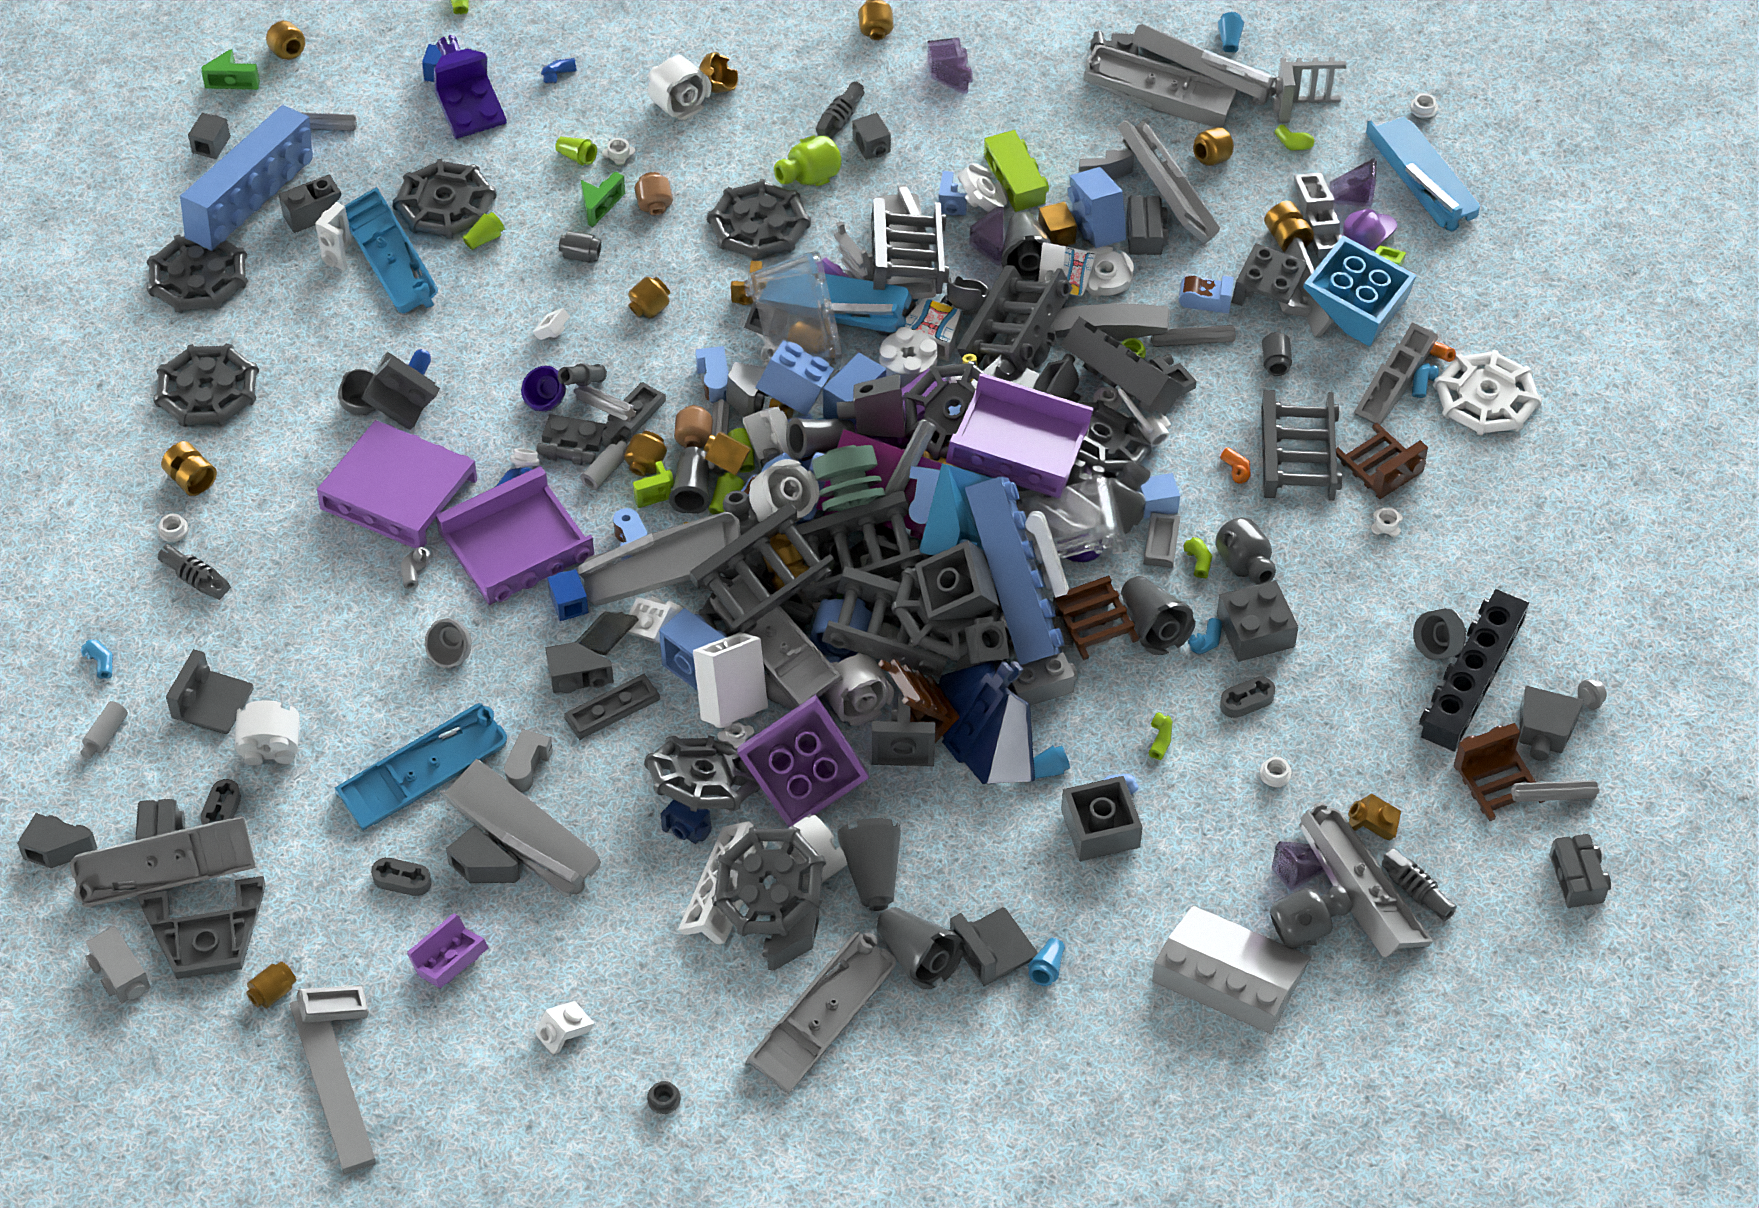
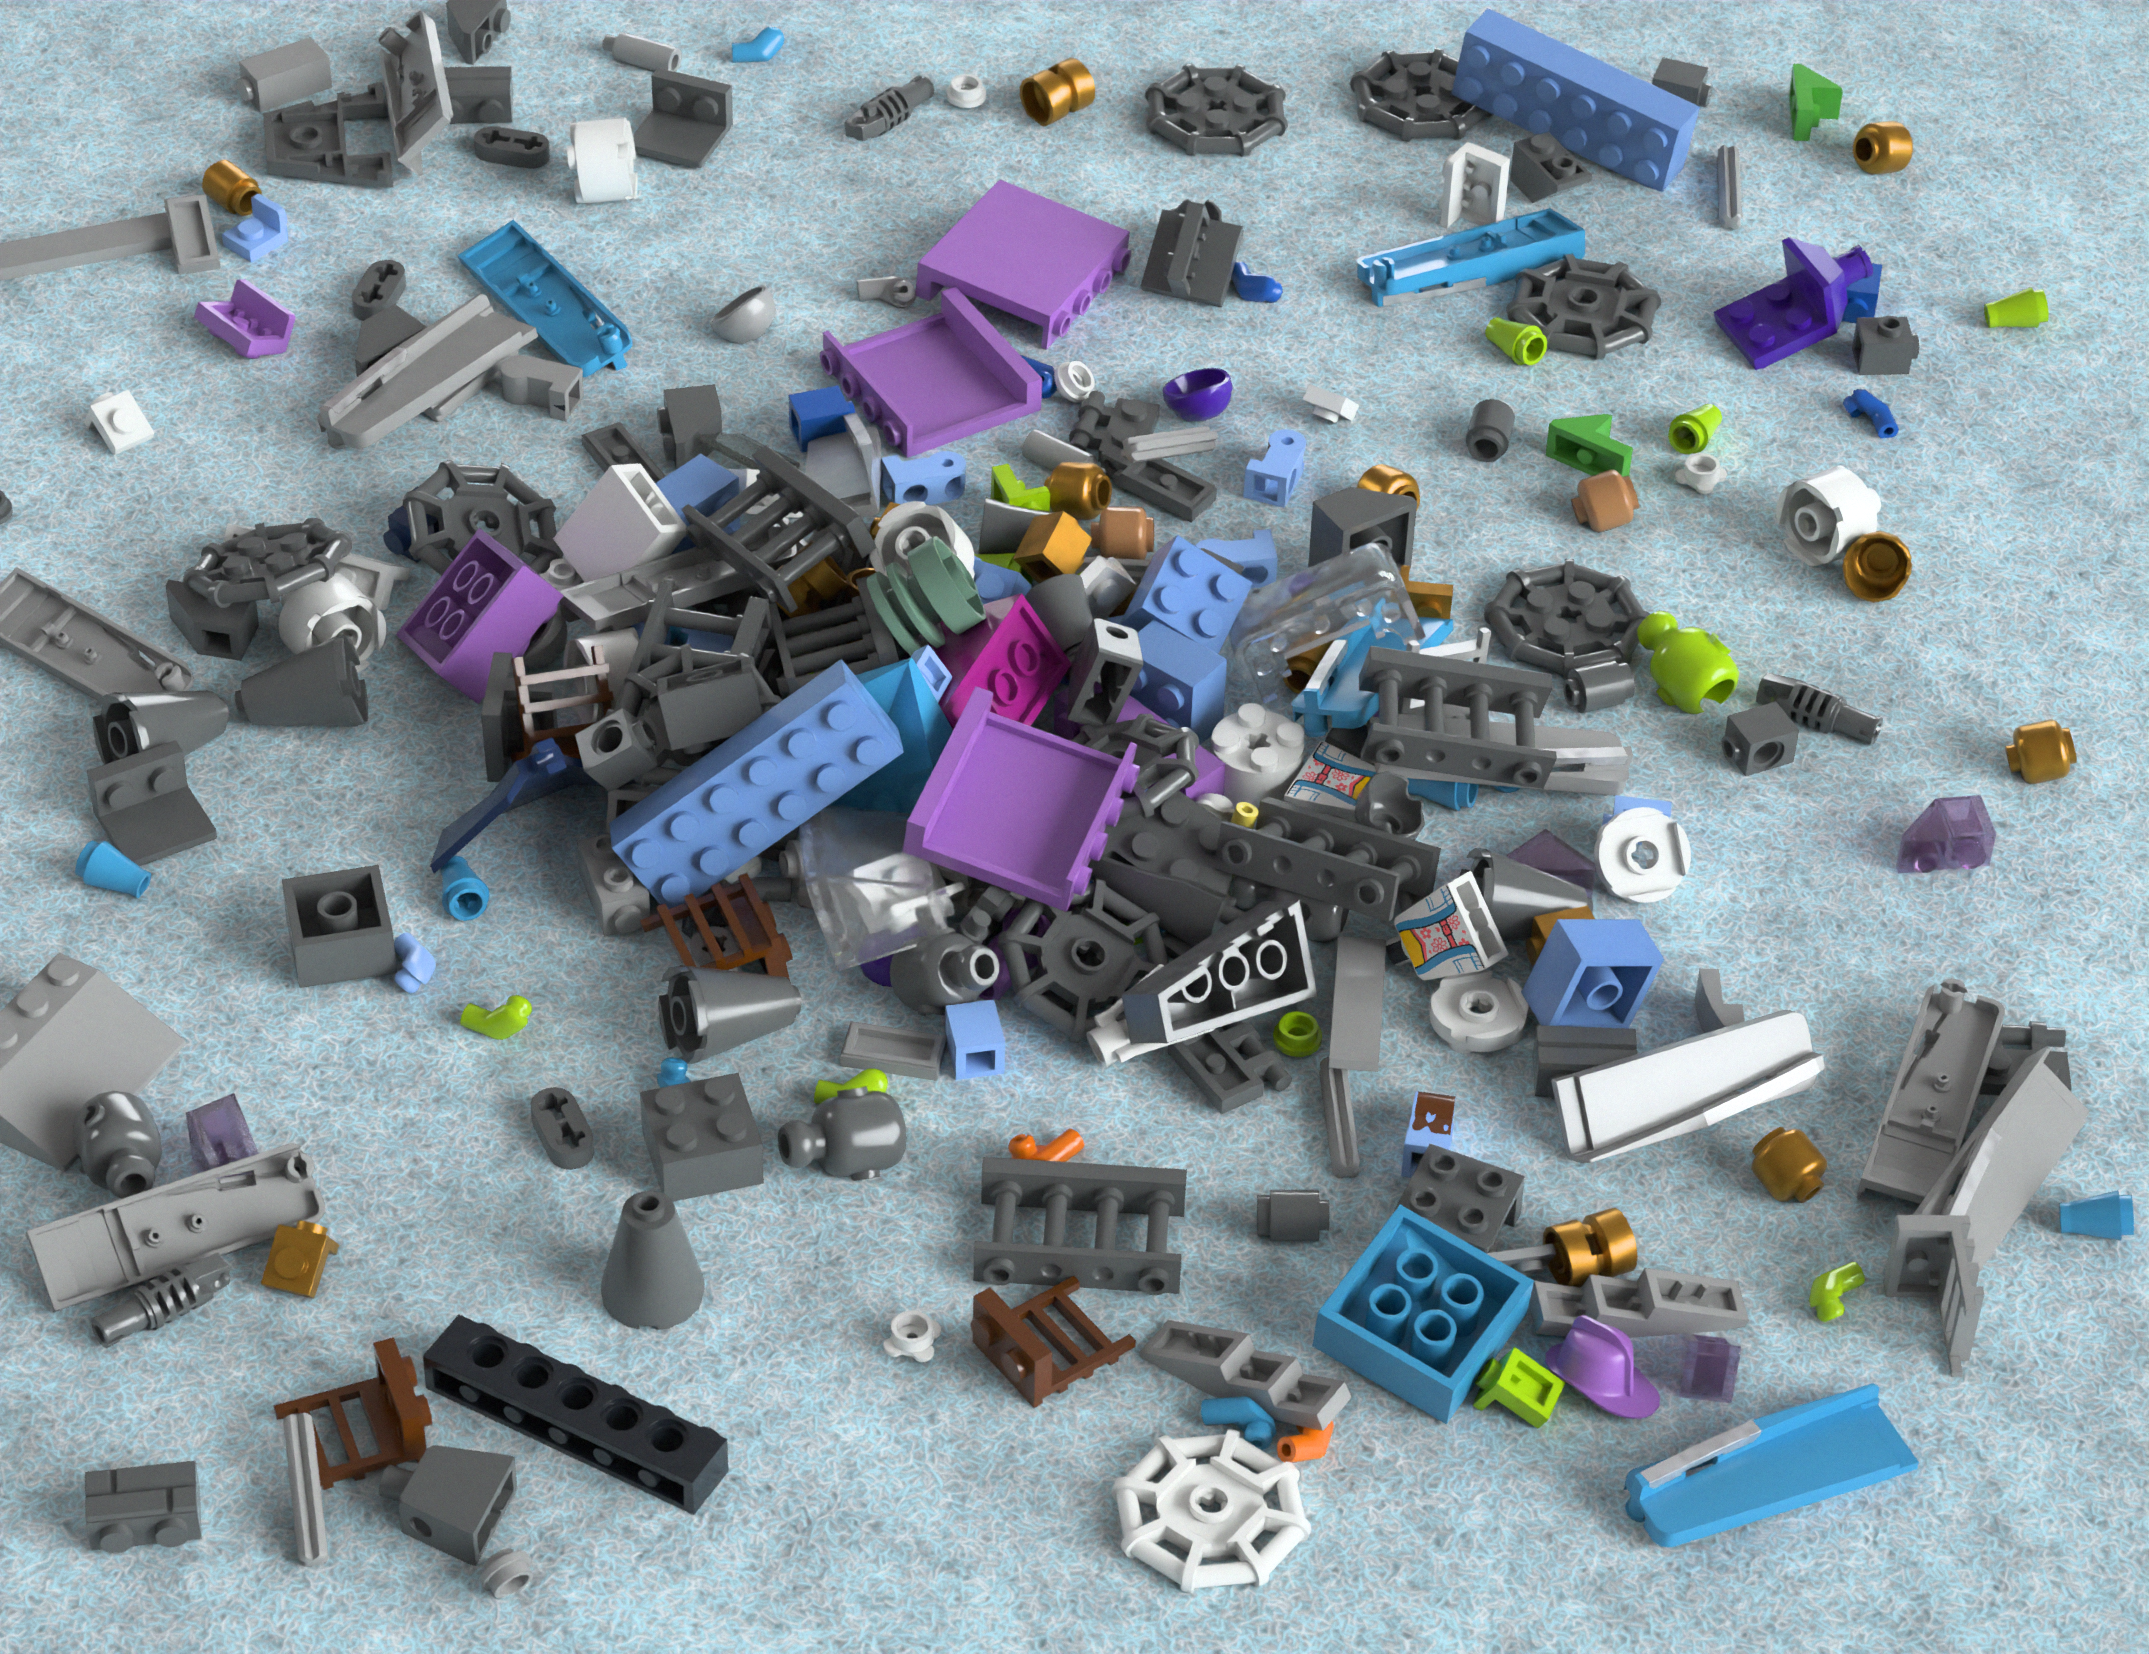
camera: 90 degrees right, 10 degrees down
(323, 963) = (260, 232): none -> light blue bracket
(499, 56) = (1884, 345): none -> dark grey brick
(582, 374) = (1219, 420): dark grey pin -> none
(618, 351) = (1279, 472): none -> light blue leg
(710, 306) = (1360, 518): none -> dark grey slope
(827, 205) = (1599, 686): none -> dark grey brick
(910, 457) = (972, 655): light grey axle -> none
(1015, 170) = (1703, 903): lime brick -> none
(1046, 552) = (782, 823): white plate -> none
(1278, 765) = (410, 1148): white plate -> none
(1366, 636) = (651, 1266): none -> dark grey cone
(1424, 106) = (1951, 1481): white plate -> none
(1439, 634) = (642, 1363): dark grey piece -> none

